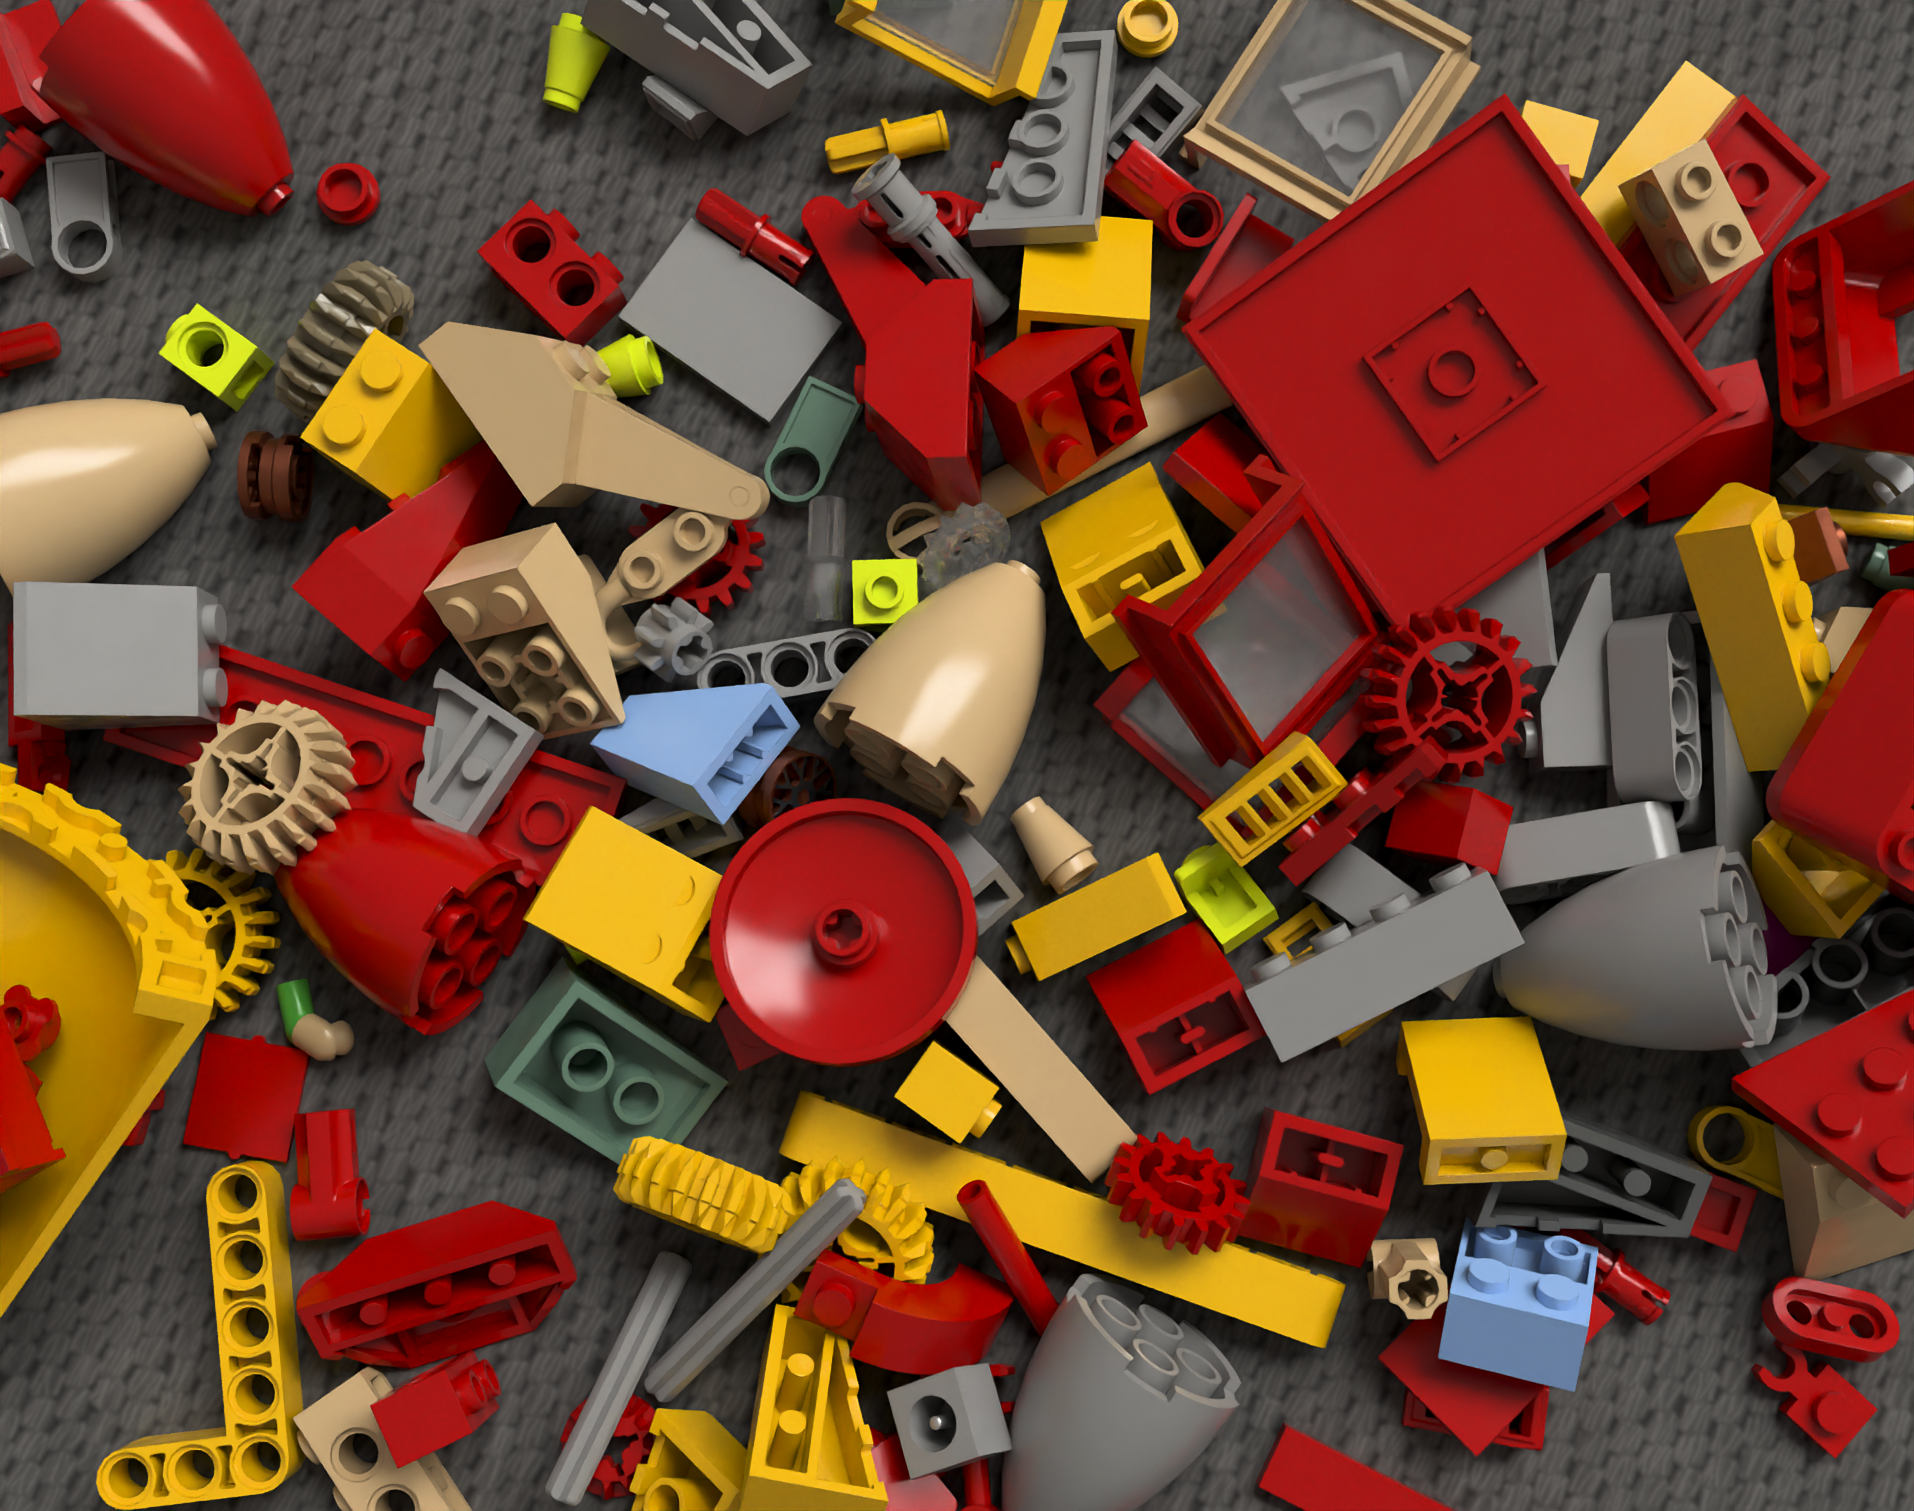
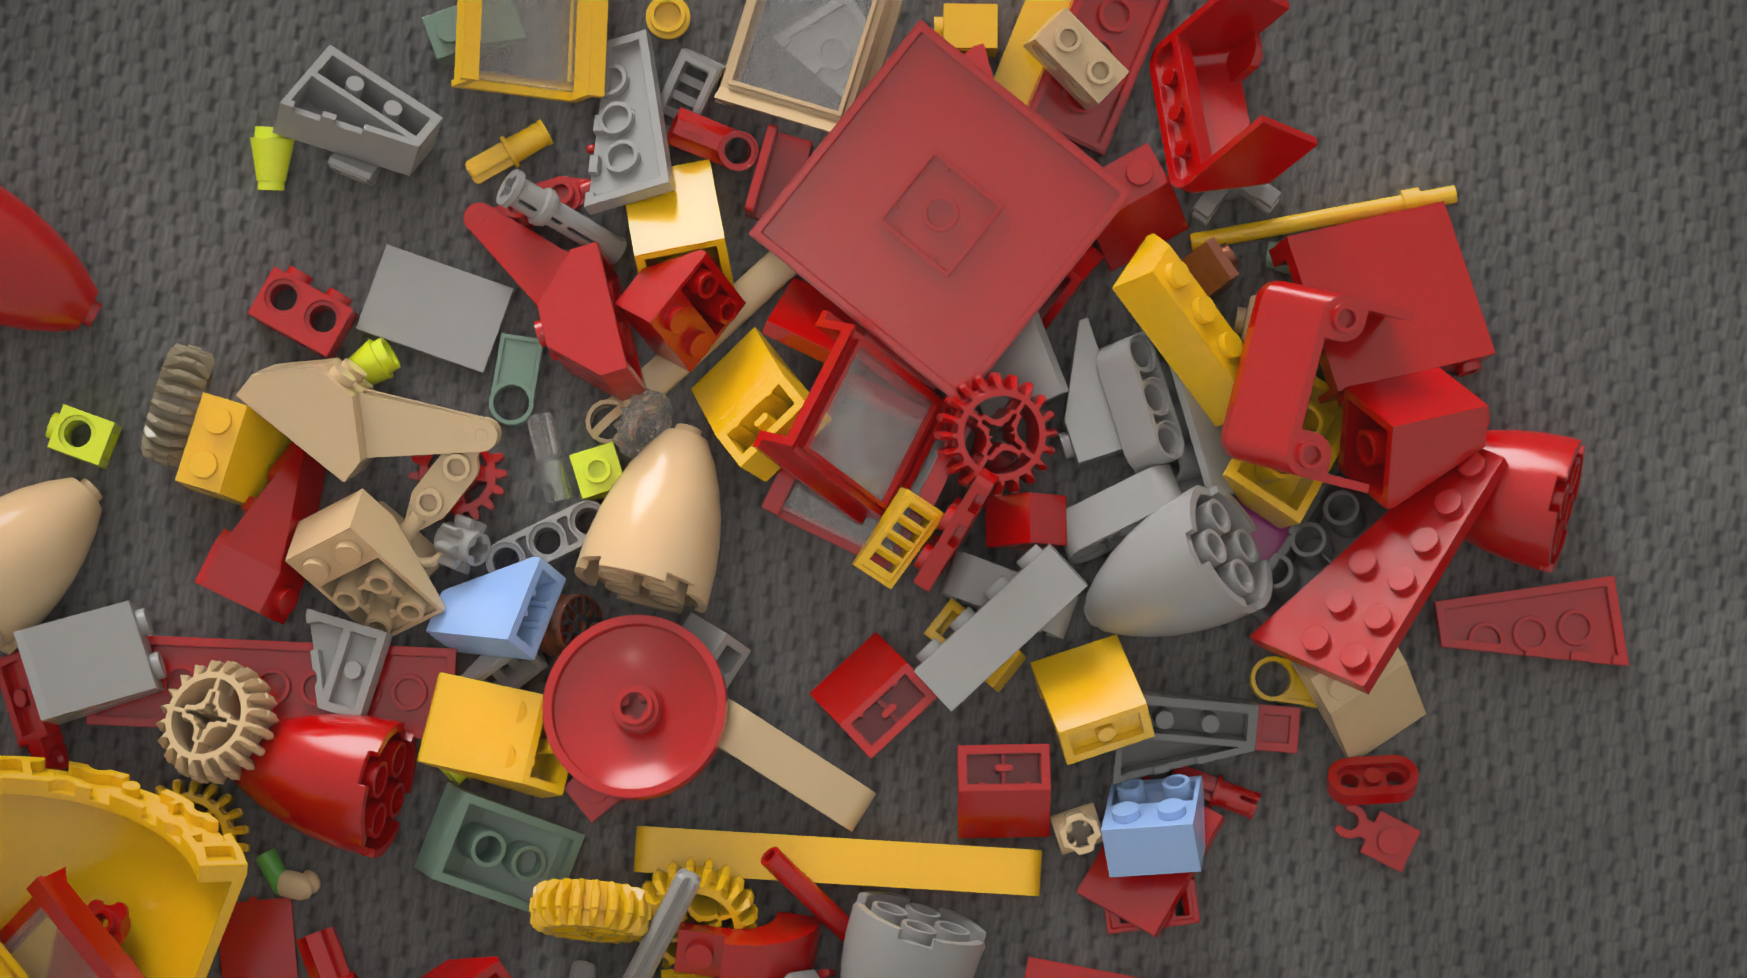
camera: 20 degrees left, 0 degrees up
(275, 476) = (159, 508): copper wheel -> none
(348, 194) = (140, 294): red plate -> none
(754, 235) = (434, 244): red axle -> none
(950, 1093) = (737, 795): yellow brick -> none
(1054, 846) = (762, 611): tan cone -> none
(1094, 918) = (802, 652): yellow slope -> none
(1177, 1193) = (908, 819): red gear -> none
(1223, 896) = (887, 612): neon yellow bracket -> none

